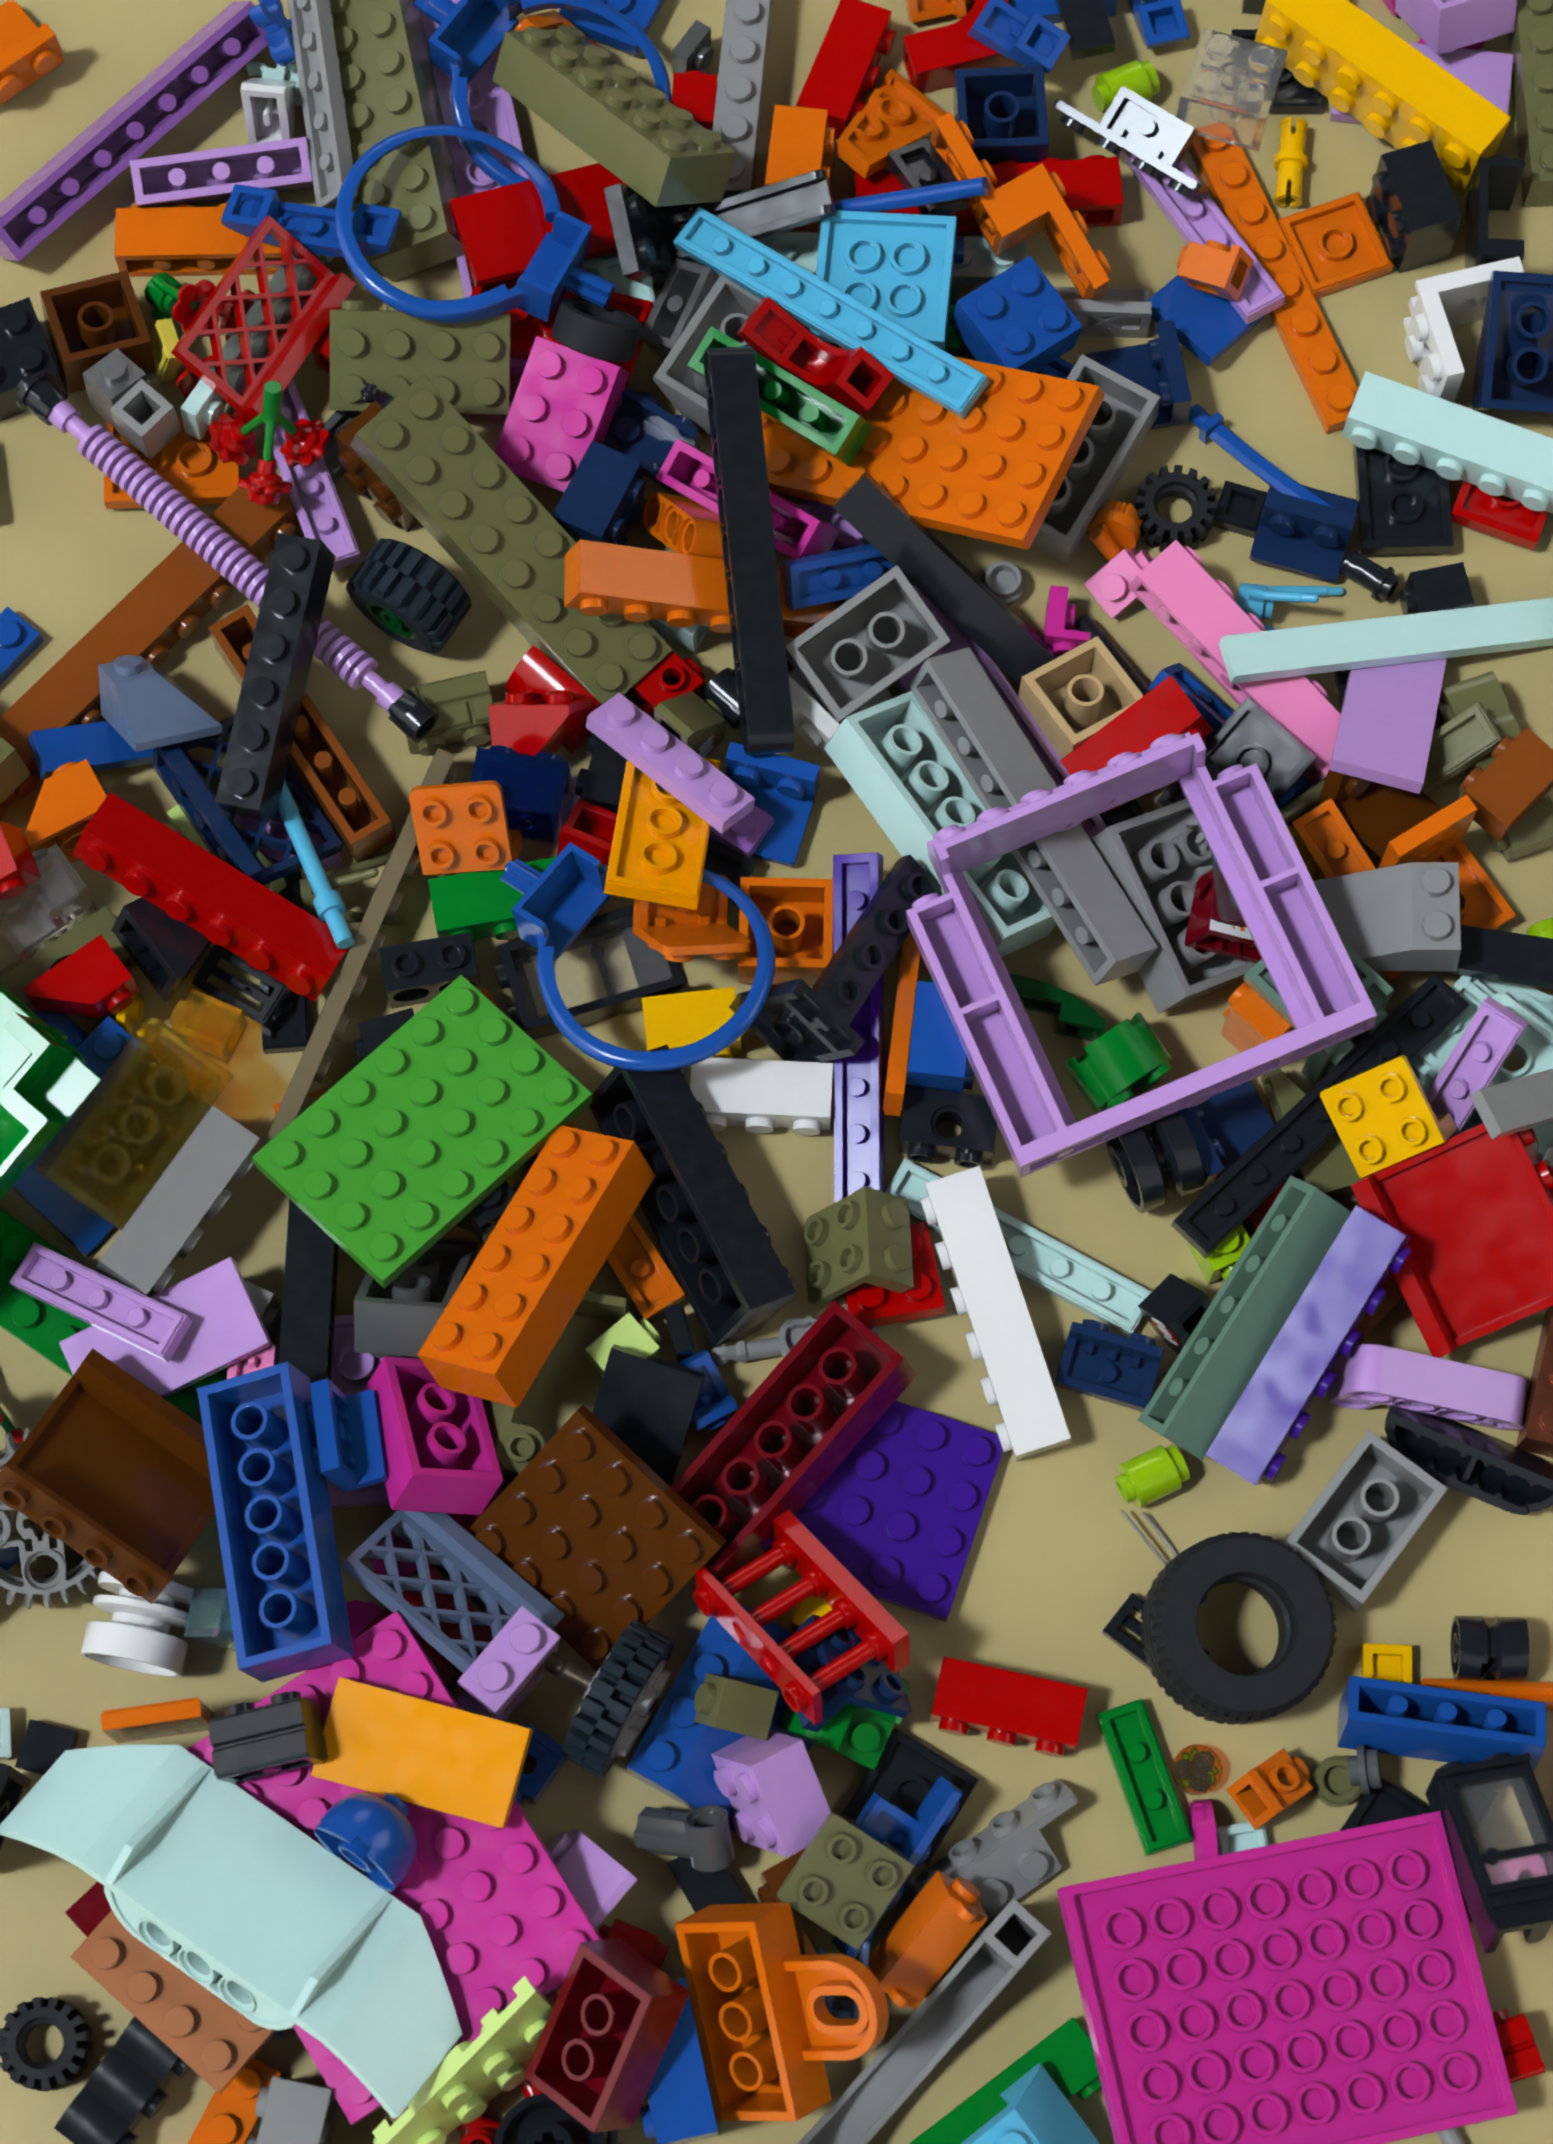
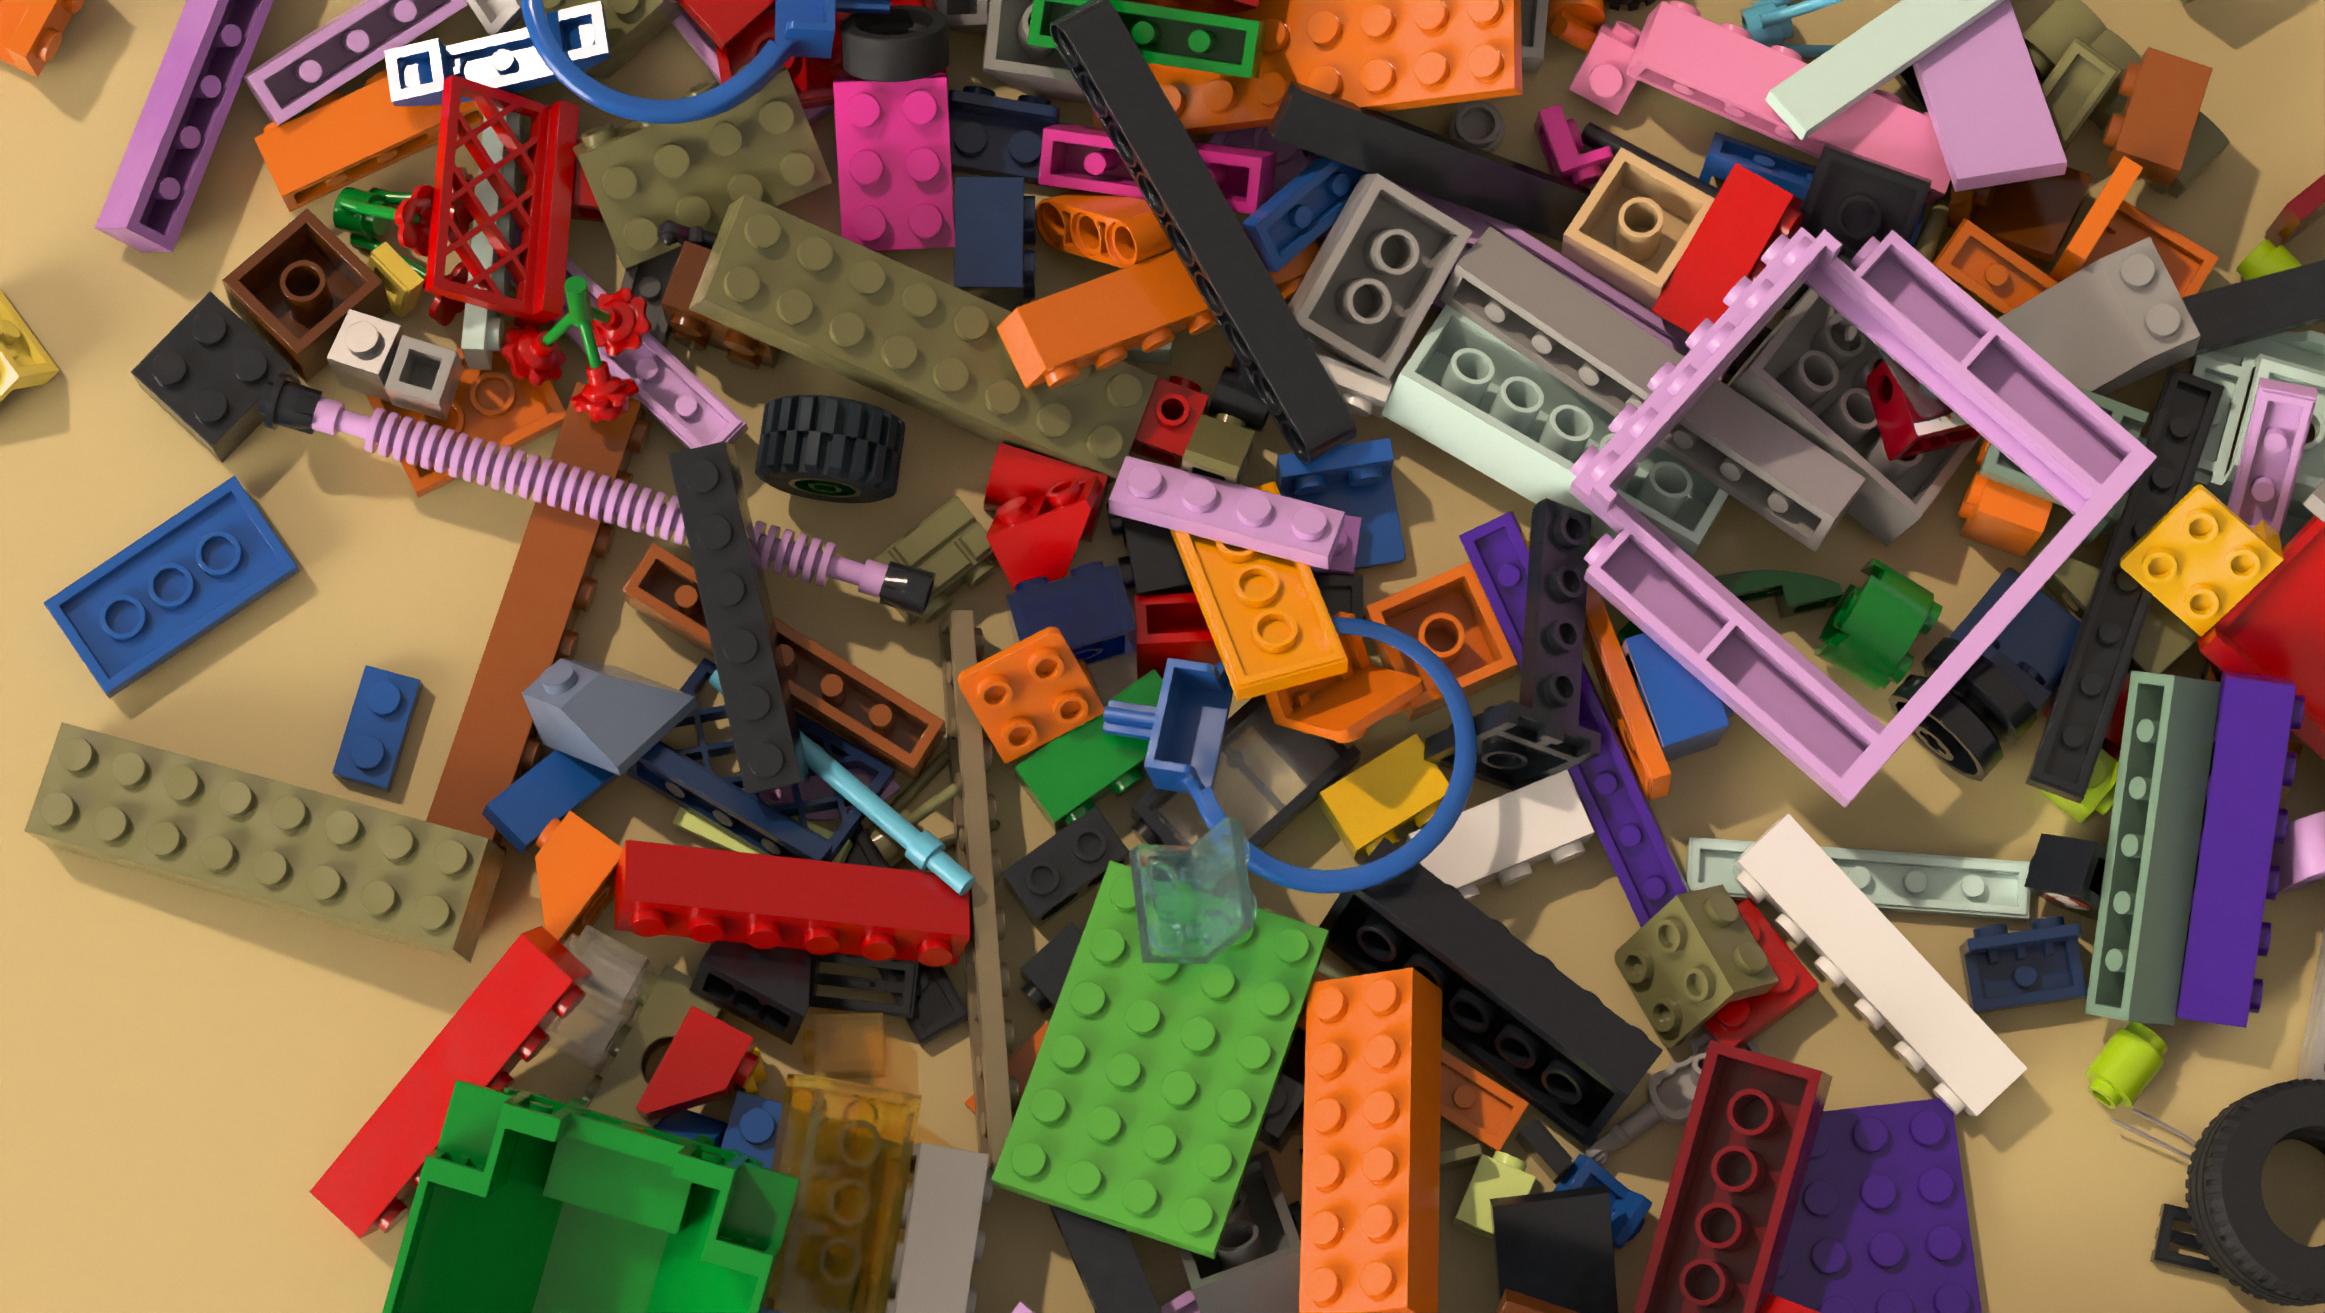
camera: 30 degrees left, 5 degrees up
(497, 1018) = (1193, 896): none -> clear light blue bracket
(928, 1108) = (1743, 755): black brick -> none

